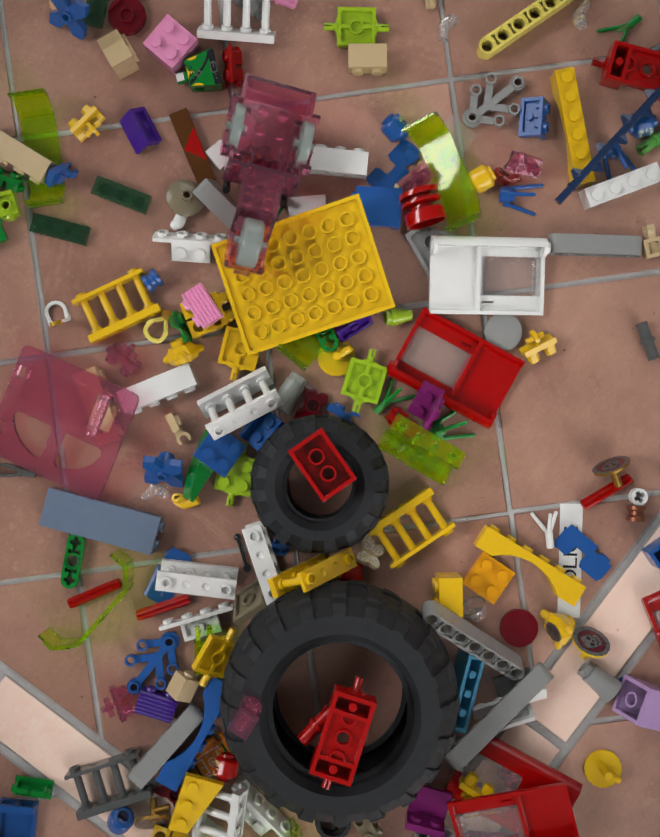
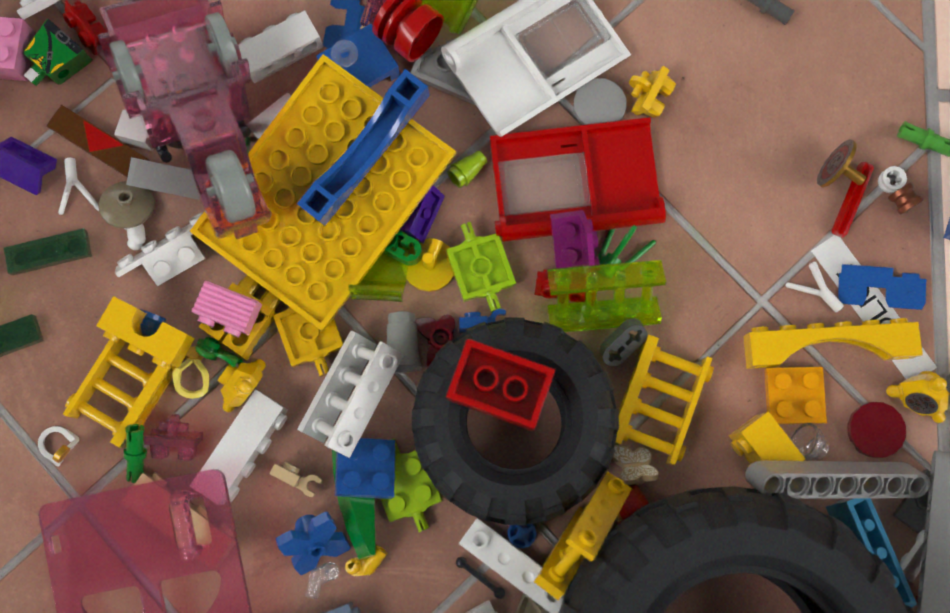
camera: 30 degrees left, 10 degrees down
(97, 351) = (134, 452): none -> green pin
(137, 273) = (124, 322): none -> yellow arch
(162, 160) = (71, 180): none -> white plant
(260, 429) = (395, 409): blue bracket -> none
(341, 271) = (389, 119): none -> blue arch
(373, 191) = (344, 46): none -> clear plate
(389, 398) = (524, 268): green plant -> none
(413, 481) = (623, 342): none -> dark grey beam

